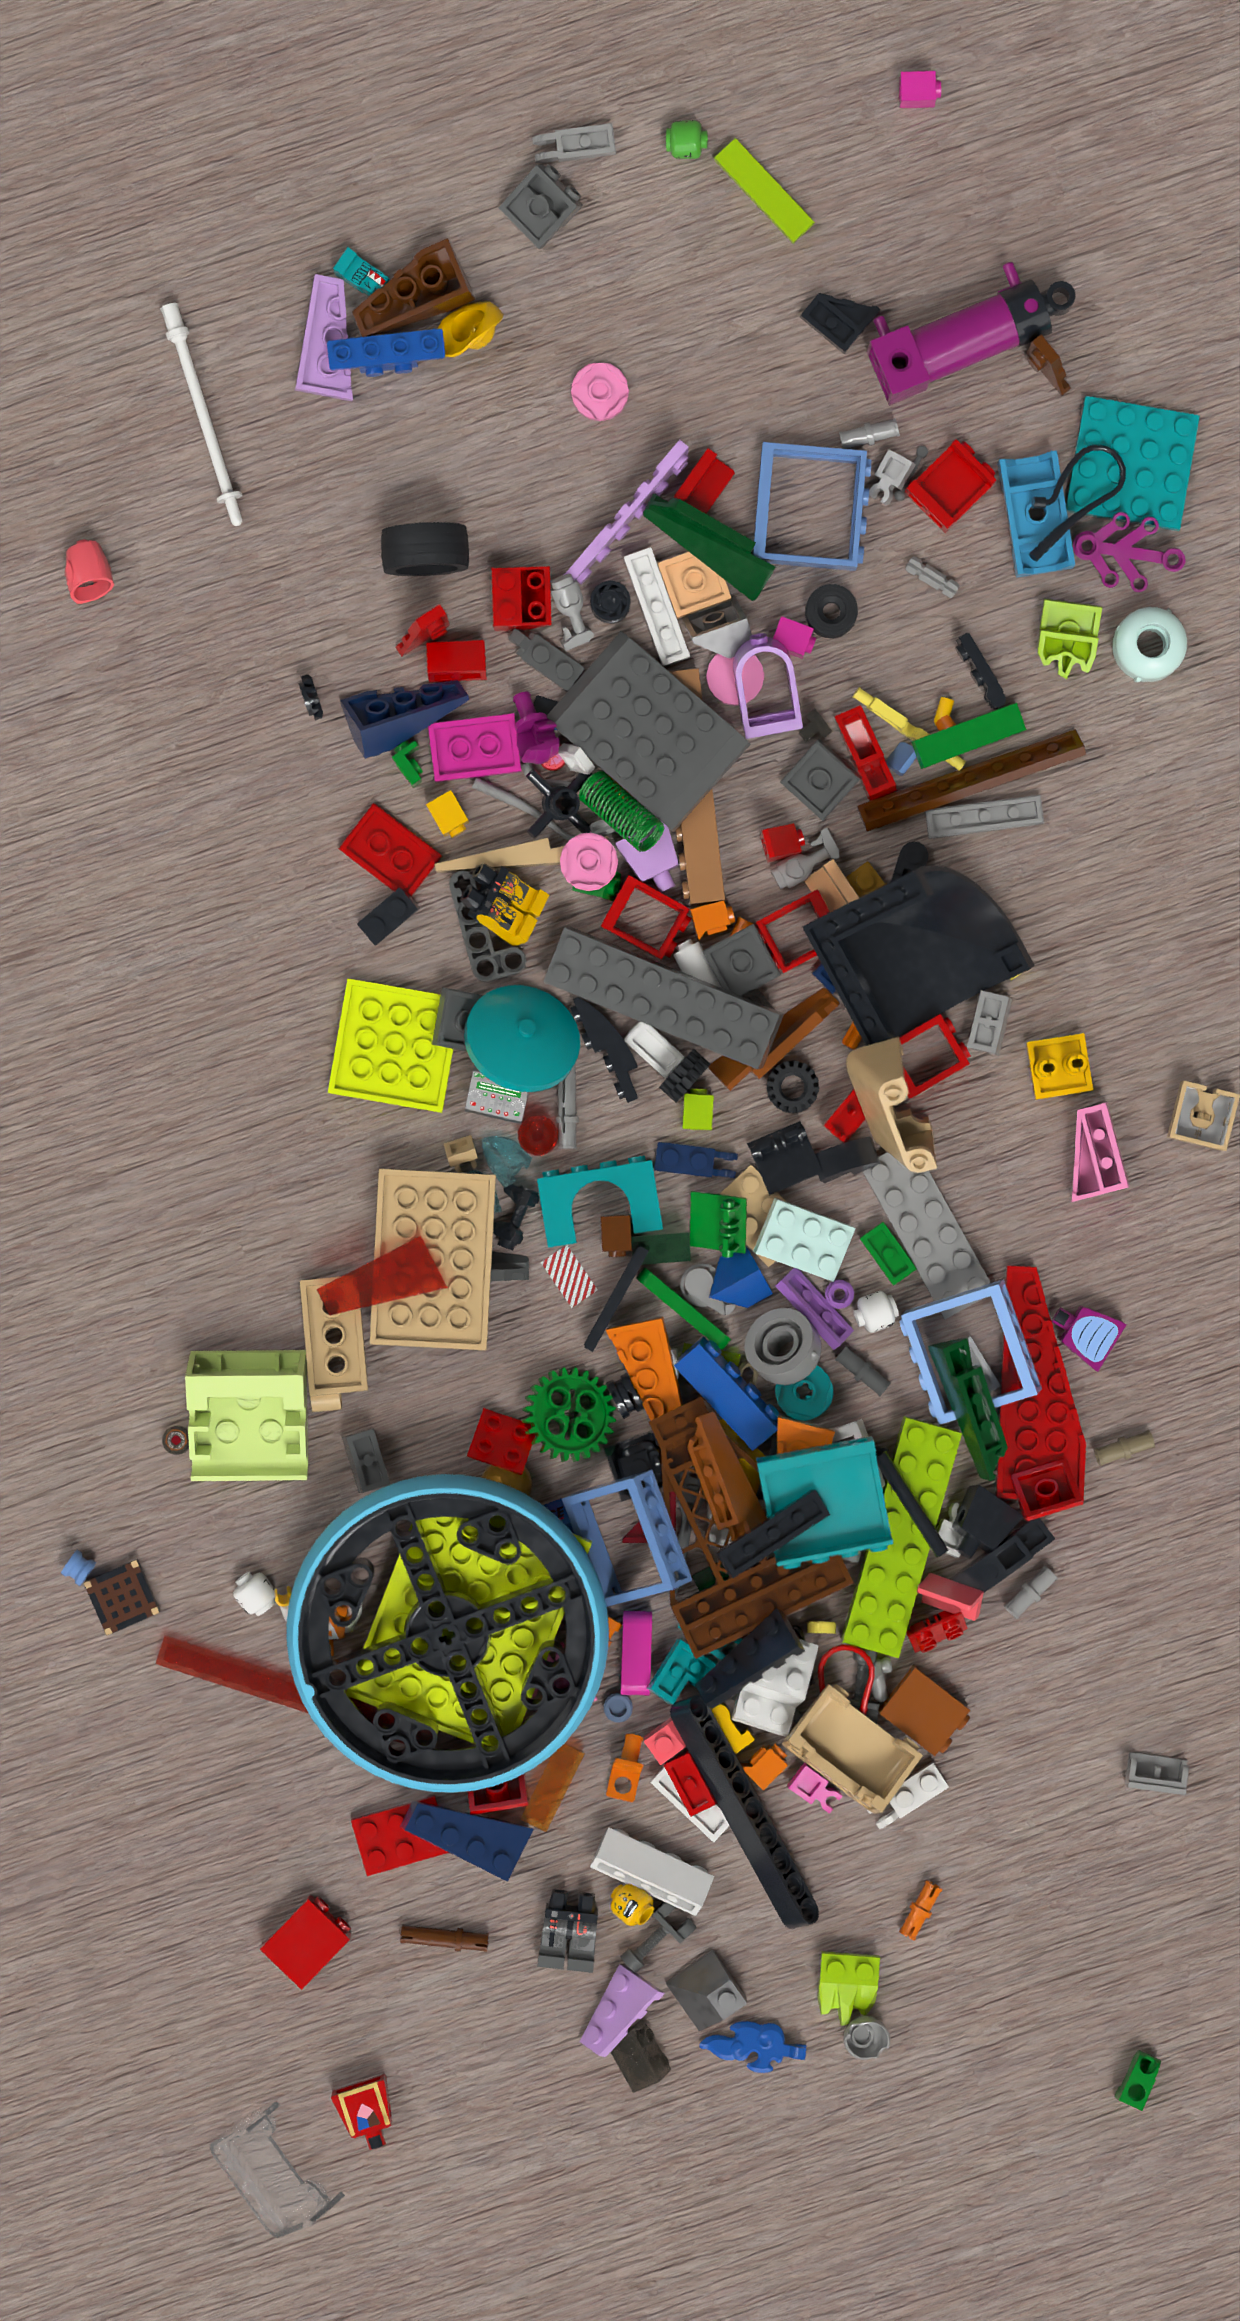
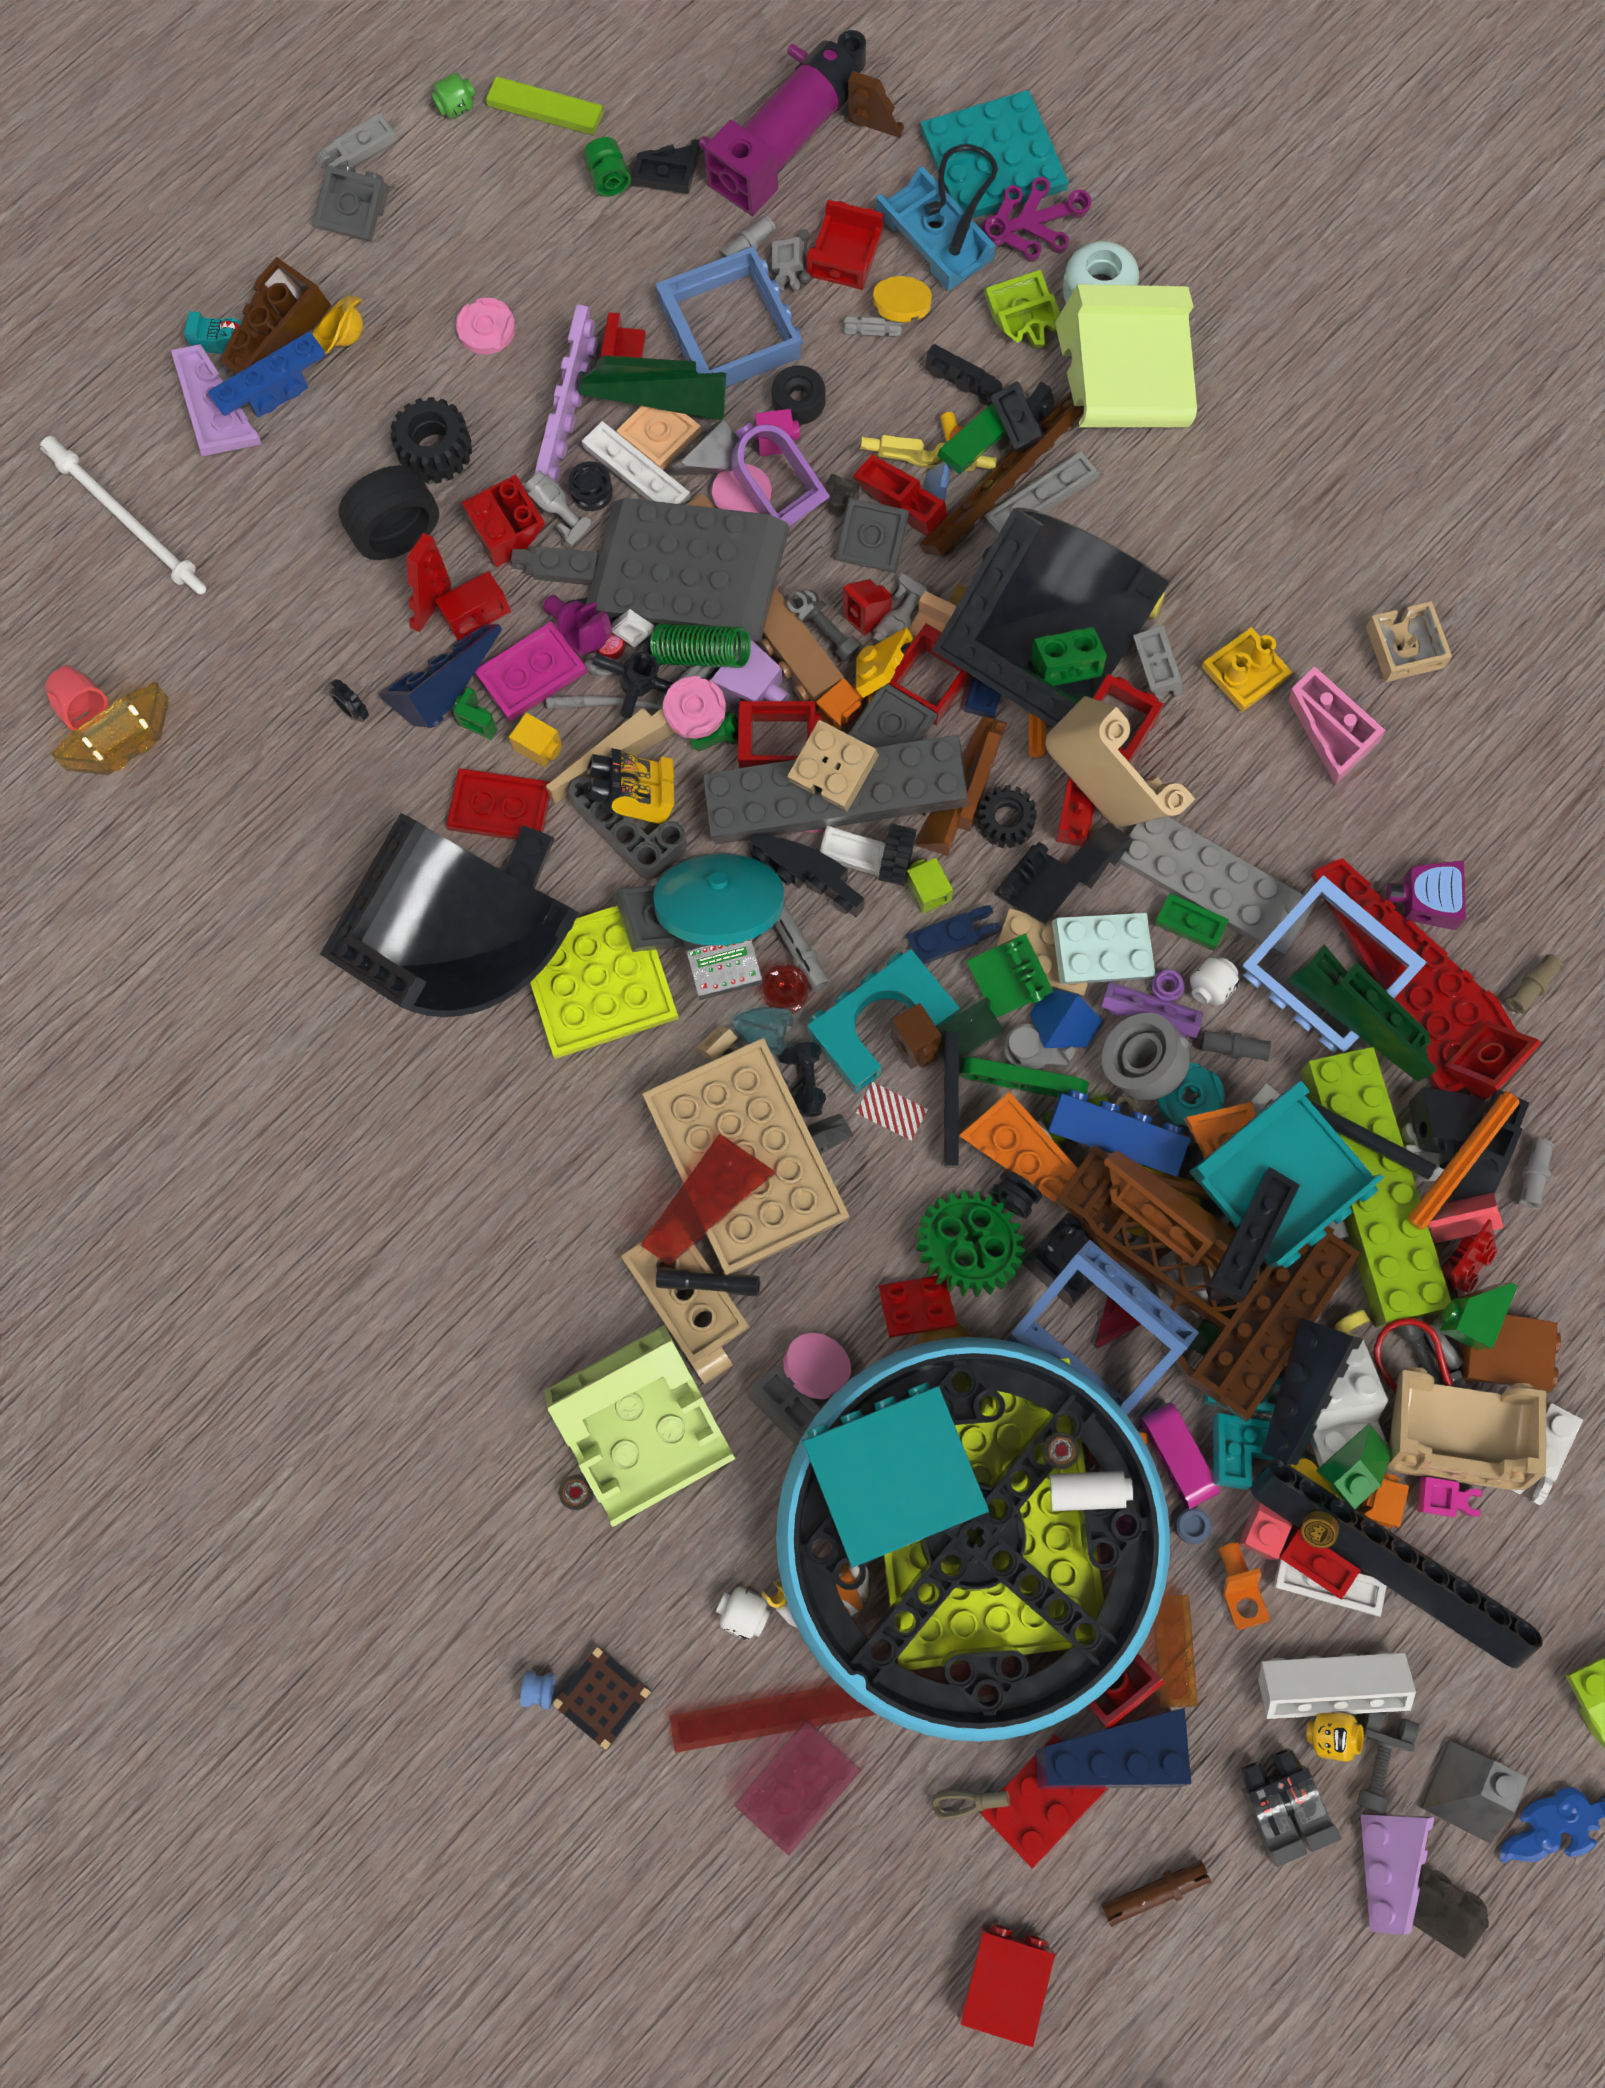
camera: 25 degrees left, 15 degrees down
(109, 624) = (116, 733): none -> clear yellow wedge
(230, 1734) = (797, 1787): none -> clear pink plate
(292, 951) = (444, 927): none -> black panel
(339, 1330) = (731, 1284): none -> black piece
(355, 1813) = (982, 1802): none -> dark tan piece
(404, 1444) = (817, 1365): none -> bright pink tile
(409, 1565) = (894, 1474): none -> teal panel
(489, 463) = (429, 419): none -> black tyre
(540, 1611) = (1060, 1450): none -> clear smoke tile
(544, 1651) = (1090, 1490): none -> white brick
(677, 980) = (838, 783): none -> tan piece
(701, 1762) = (1320, 1529): none -> tile
(732, 823) = (812, 610): none -> dark grey bar
(755, 1733) = (1357, 1467): none -> green slope
(760, 902) = (878, 663): none -> yellow wing
(783, 294) = (606, 166): none -> green wheel
(911, 1674) = (1478, 1315): none -> green slope
(913, 991) = (1068, 656): none -> green brick
(970, 567) = (902, 298): none -> yellow tile
(972, 1557) = (1463, 1160): none -> orange axle
(998, 743) = (1017, 416): none -> black plate
(1026, 736) = (1042, 401): none -> black plate
(1123, 742) = (1130, 355): none -> yellowish green panel

